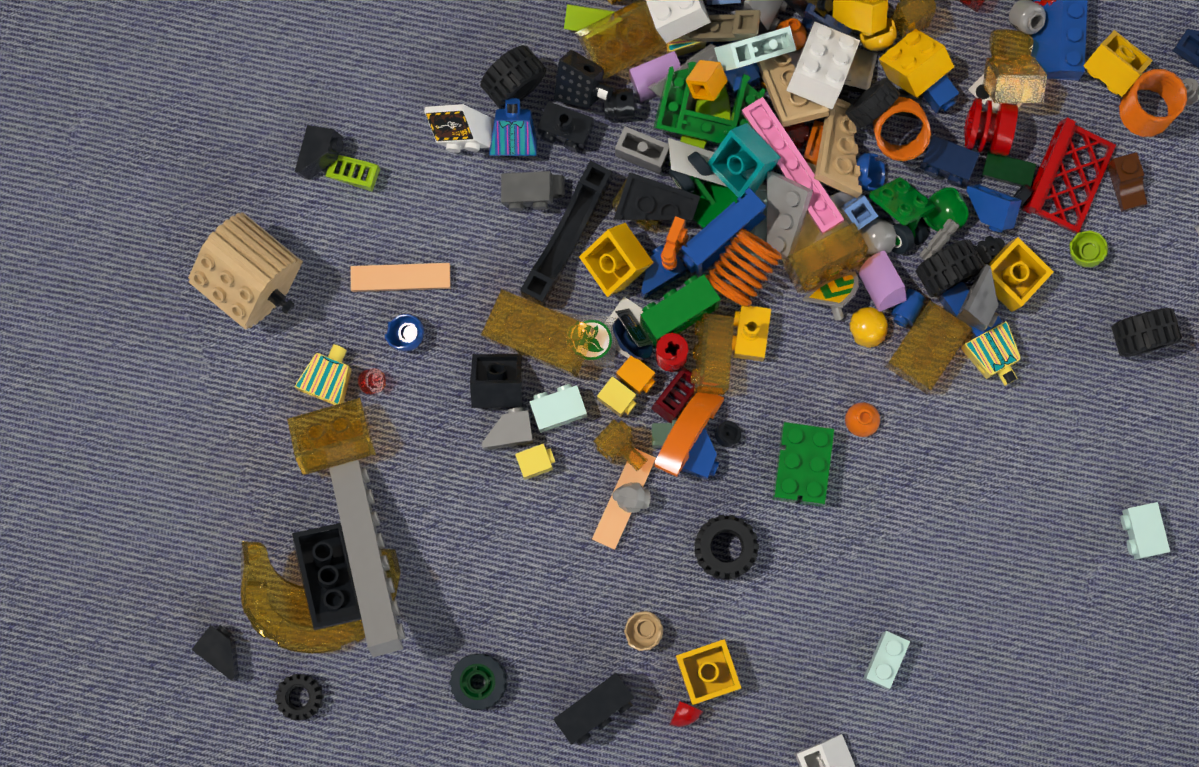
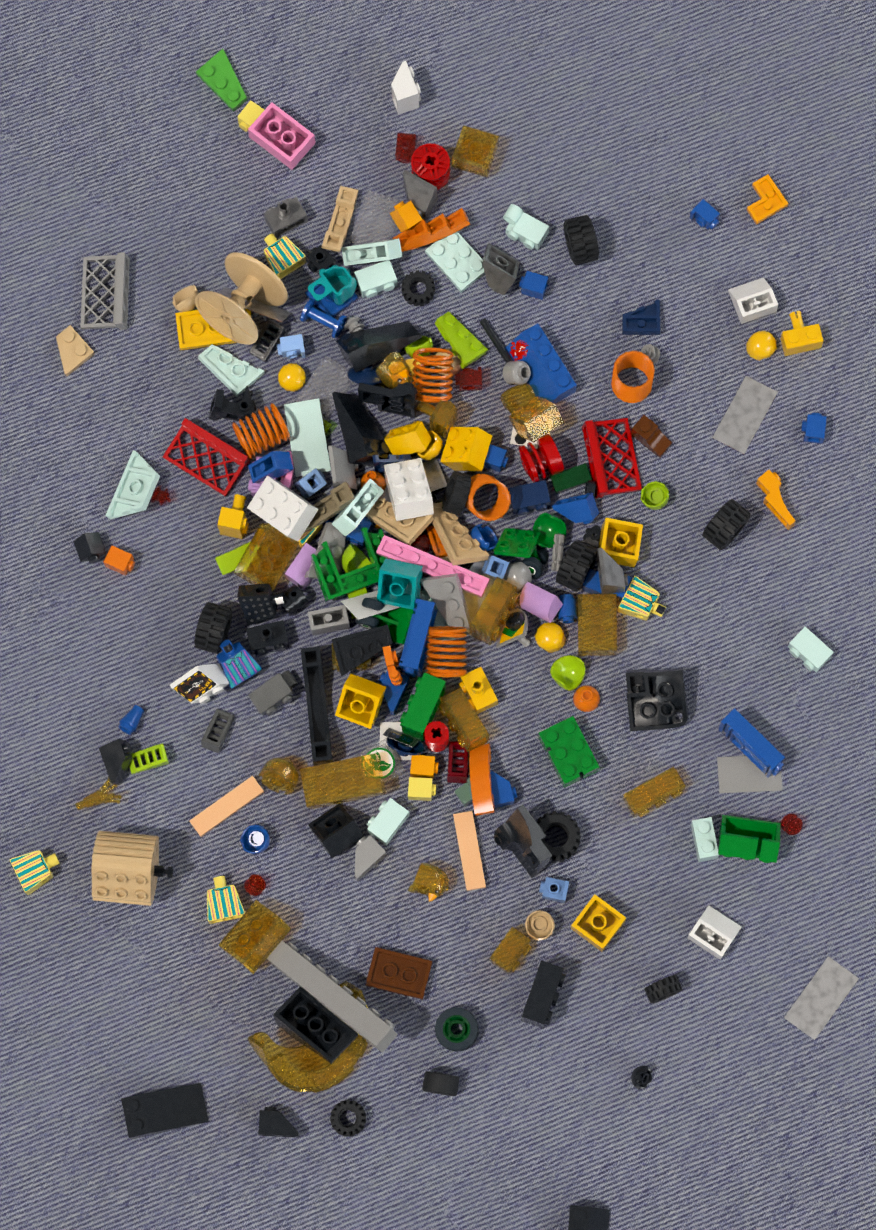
camera: 35 degrees left, 5 degrees down
(114, 556) = (164, 1110): none -> black slope
(154, 209) = (34, 869): none -> light yellow torso
(274, 177) = (99, 797): none -> clear yellow piece
(363, 119) = (130, 721): none -> blue cone
(420, 729) = (440, 1083): none -> black tyre
(434, 207) = (215, 742): none -> dark grey slope
(458, 579) = (398, 973): none -> reddish brown plate
(478, 281) = (280, 774): none -> clear yellow cylinder
(535, 461) = (396, 865): light yellow brick -> none
(559, 503) = (430, 881): none -> clear yellow piece
(594, 636) = (510, 951): none -> clear yellow brick
(617, 442) = (440, 817): clear yellow brick -> none
(632, 497) = (475, 845): light grey rock -> none
(684, 715) = (602, 960): red brick -> none
(689, 527) = (524, 839): none -> black slope
(690, 612) = (559, 895): none -> medium blue brick
(706, 80) = (341, 547): light orange brick -> none
(728, 434) = (507, 765): black tile -> none
(841, 284) = (515, 621): none -> black tile
(861, 378) = (568, 672): none -> lime helmet
(866, 571) = (654, 793): none -> clear yellow brick
(935, 694) = (749, 839): none -> green piece
(937, 471) = (655, 699): none -> black slope
(985, 620) = (742, 775): none -> light grey sticker
(993, 708) = (791, 824): none -> clear red wheel
(1010, 591) = (752, 743): none -> blue door
(1117, 63) = (593, 366): yellow brick -> none

